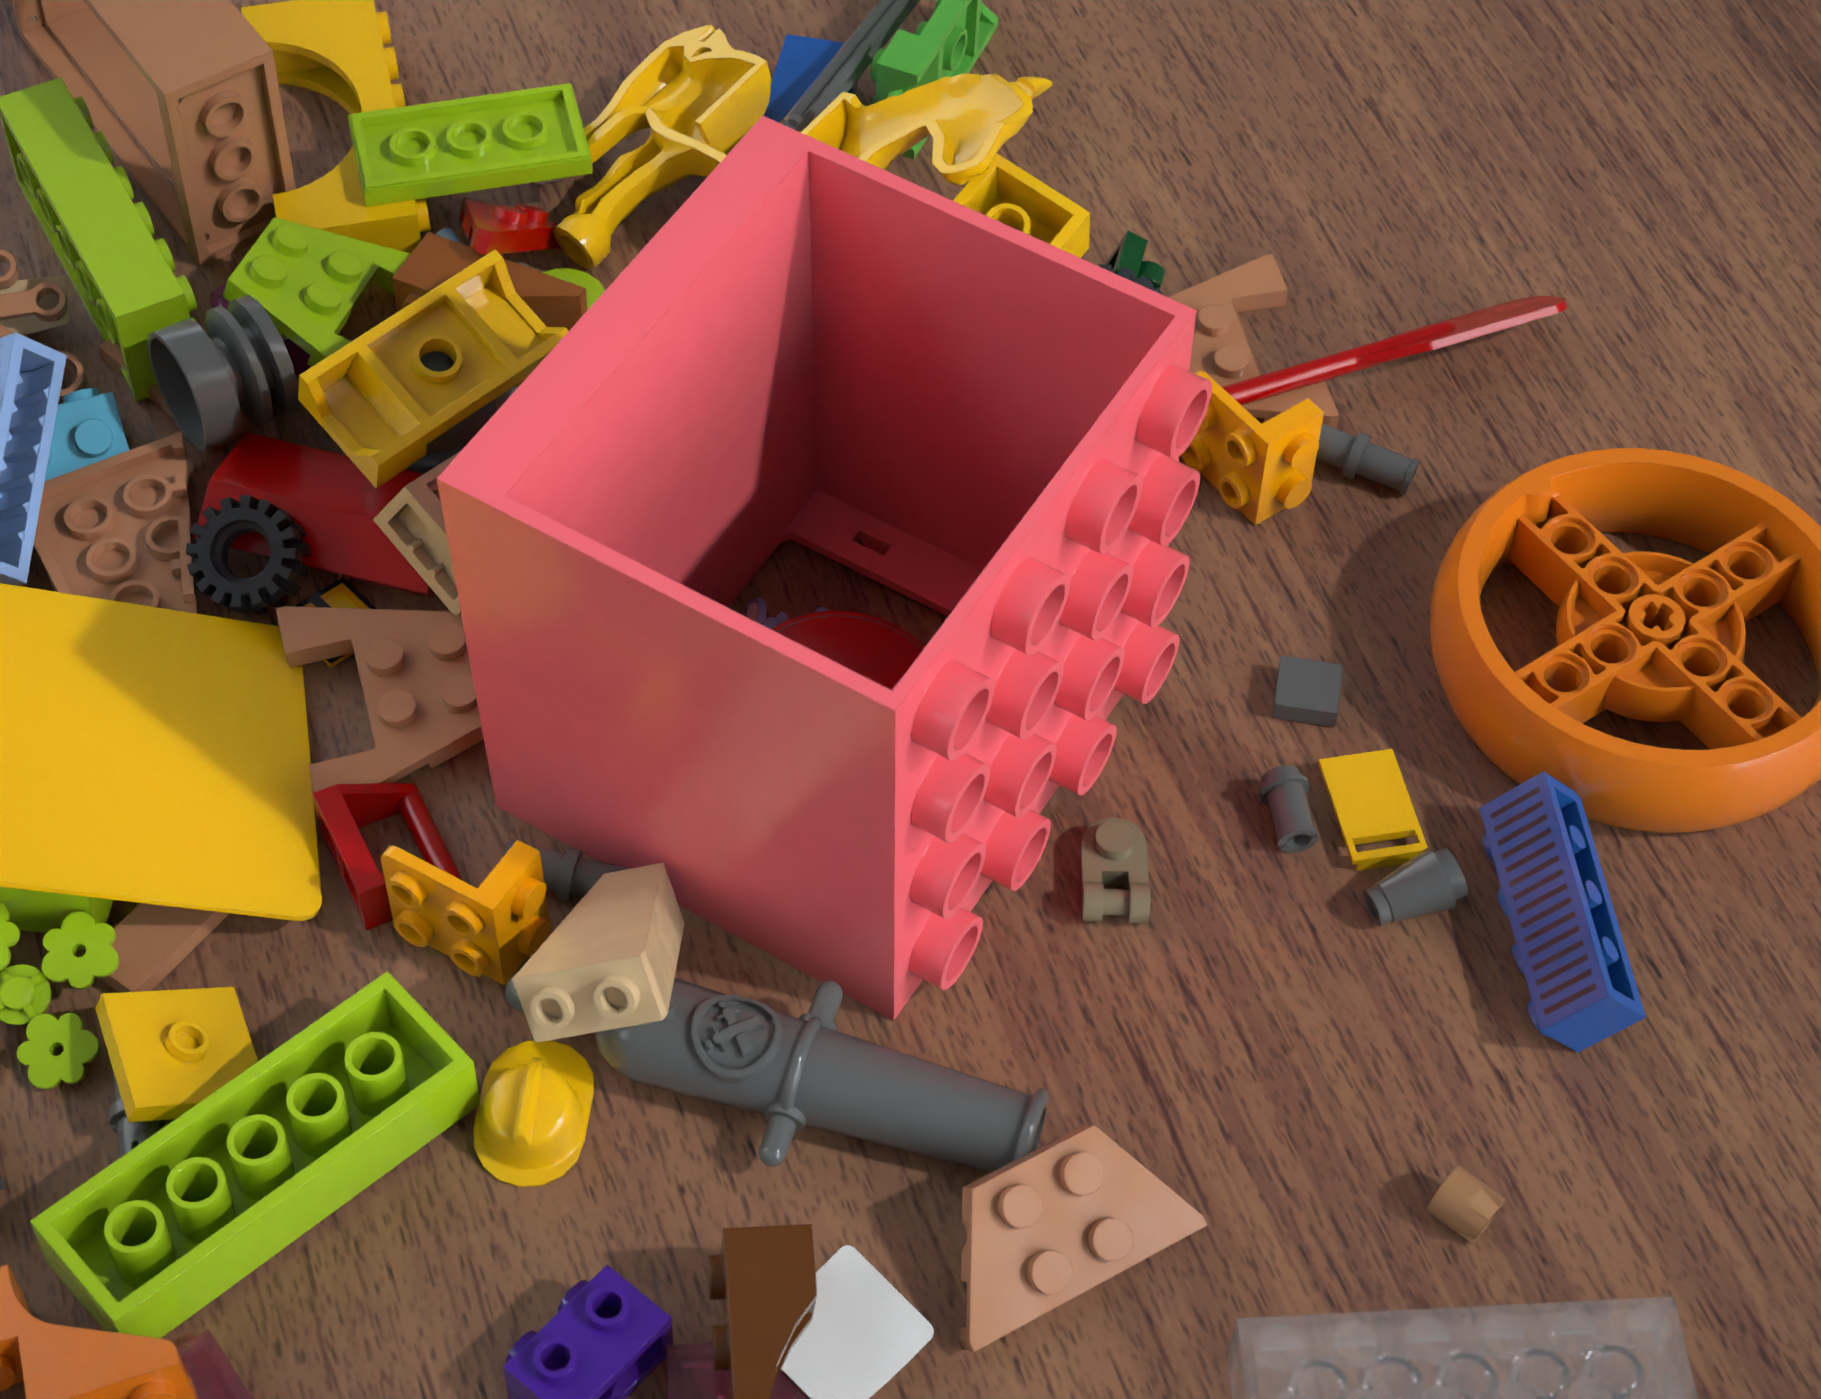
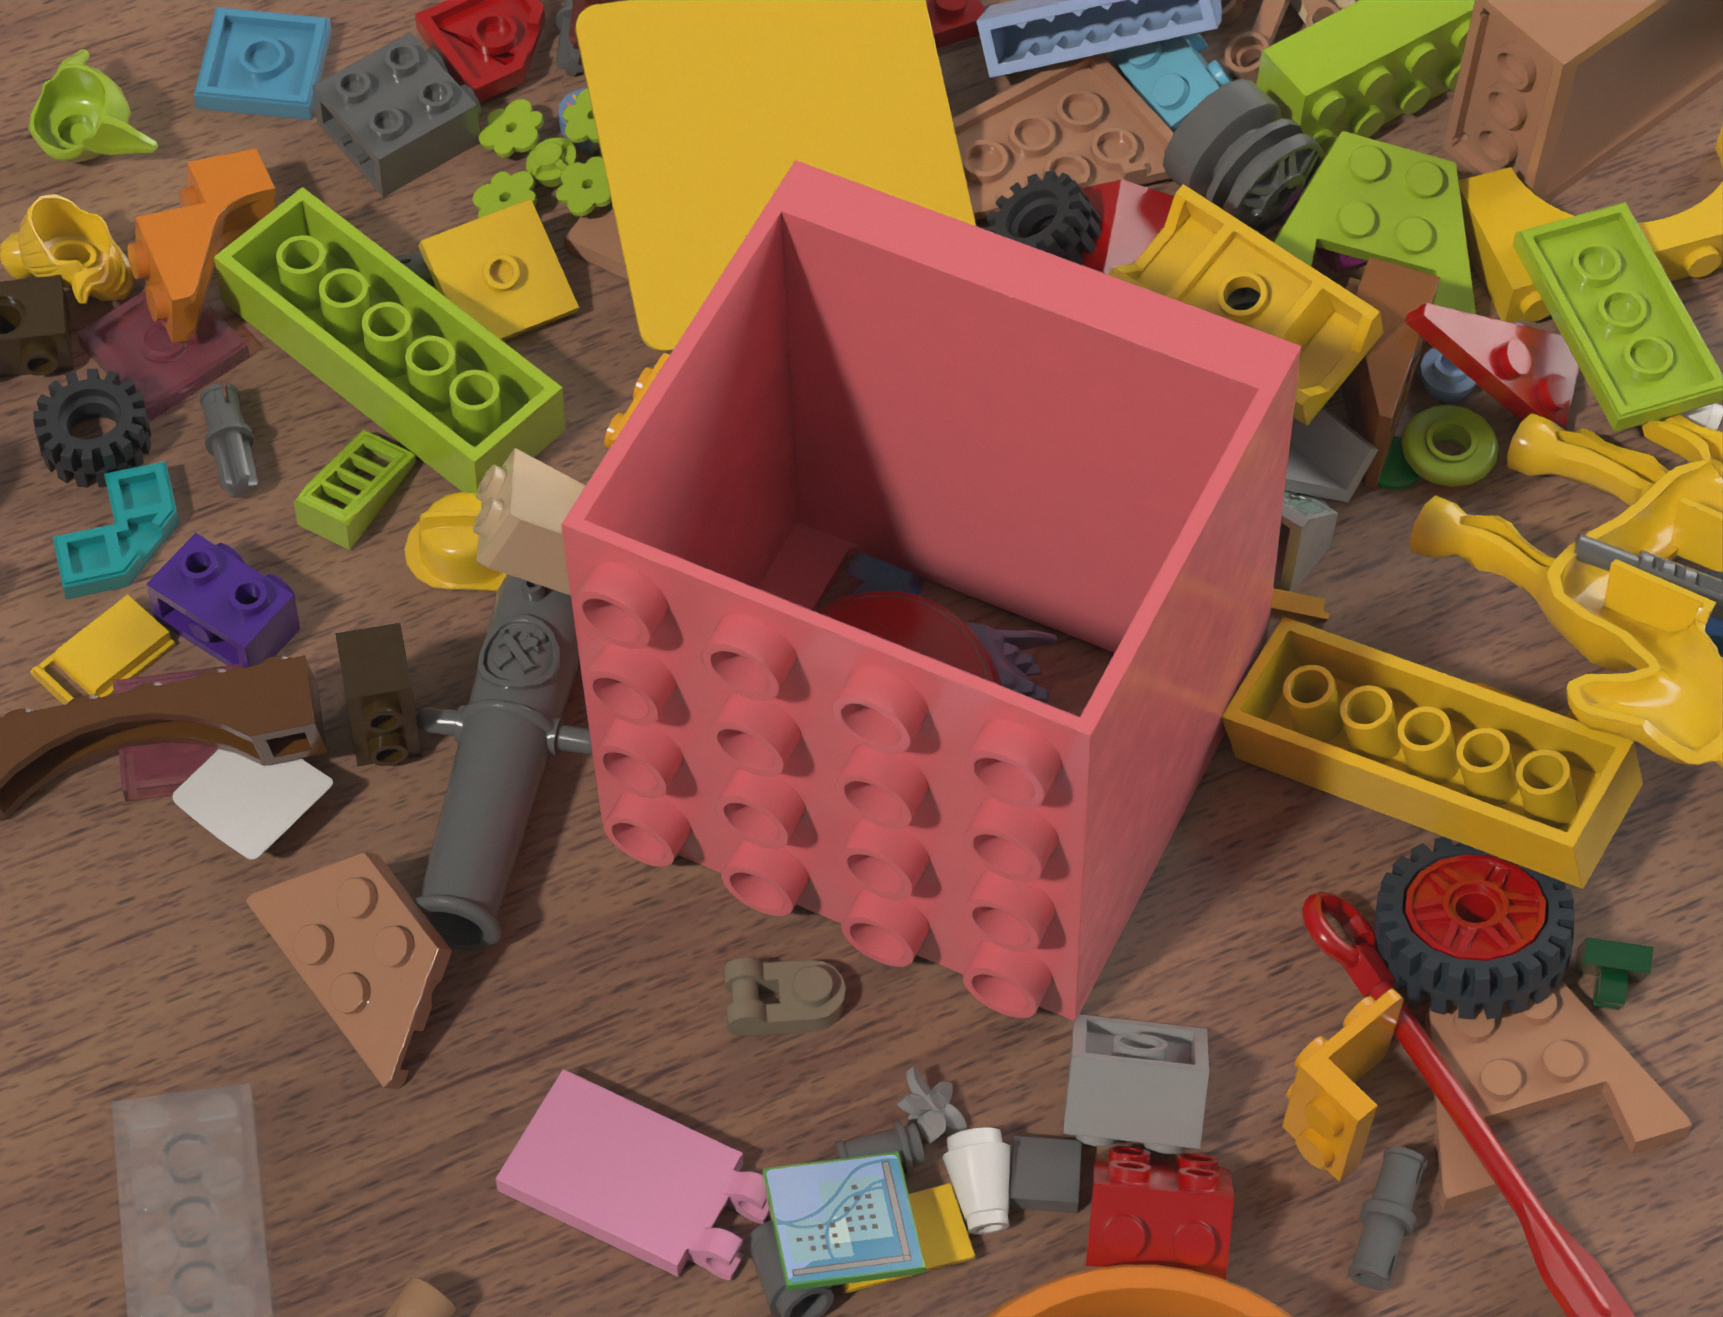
camera: 85 degrees right, 5 degrees up
(345, 1351) = (229, 439): none -> dark grey axle
(460, 1267) = (348, 524): none -> lime slope
(757, 1173) = (378, 695): none -> dark brown brick
(1235, 602) = (1136, 1083): none -> light grey slope
(1247, 764) = (931, 1107): none -> light grey plant
(1308, 1014) = (632, 1178): none -> bright pink tile
(1317, 732) = (980, 1176): none -> white cone
(1369, 579) = (1160, 1211): none -> red bracket
(1381, 825) = (843, 1221): none -> piece

